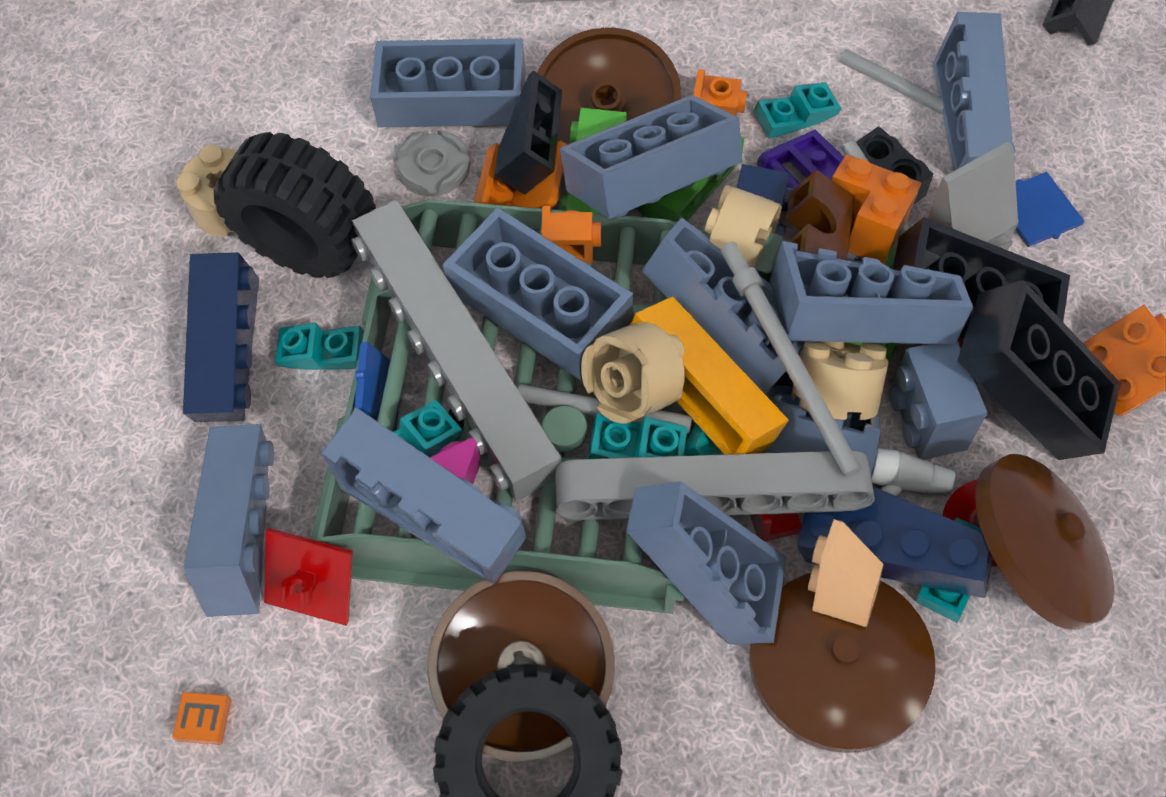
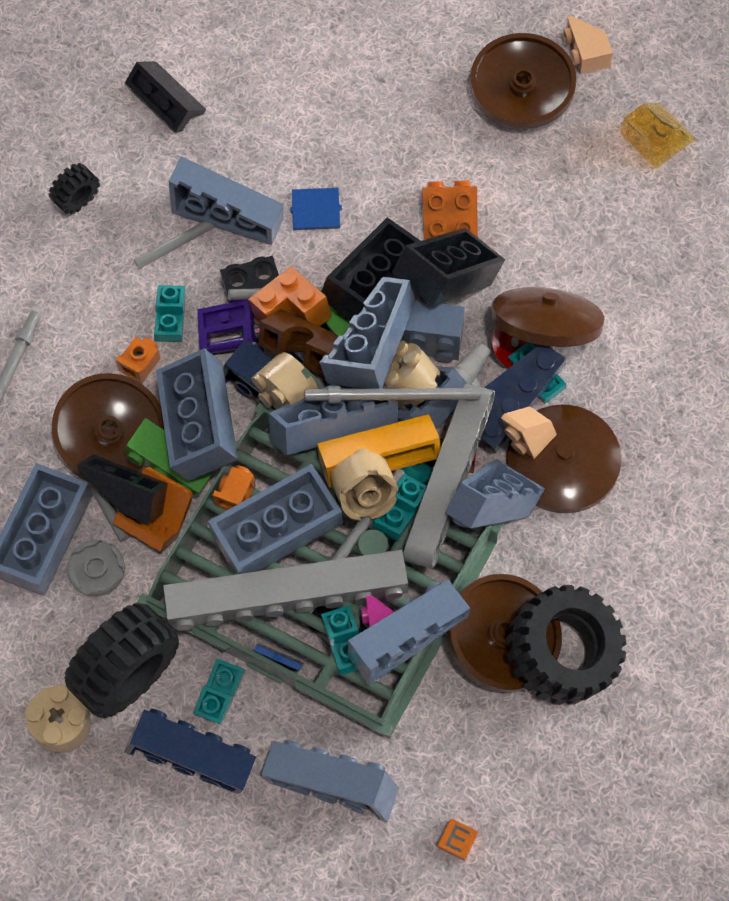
camera: 70 degrees left, 5 degrees up
(308, 576) = (396, 741): red piece -> none
(981, 198) = (318, 245): light grey slope -> none

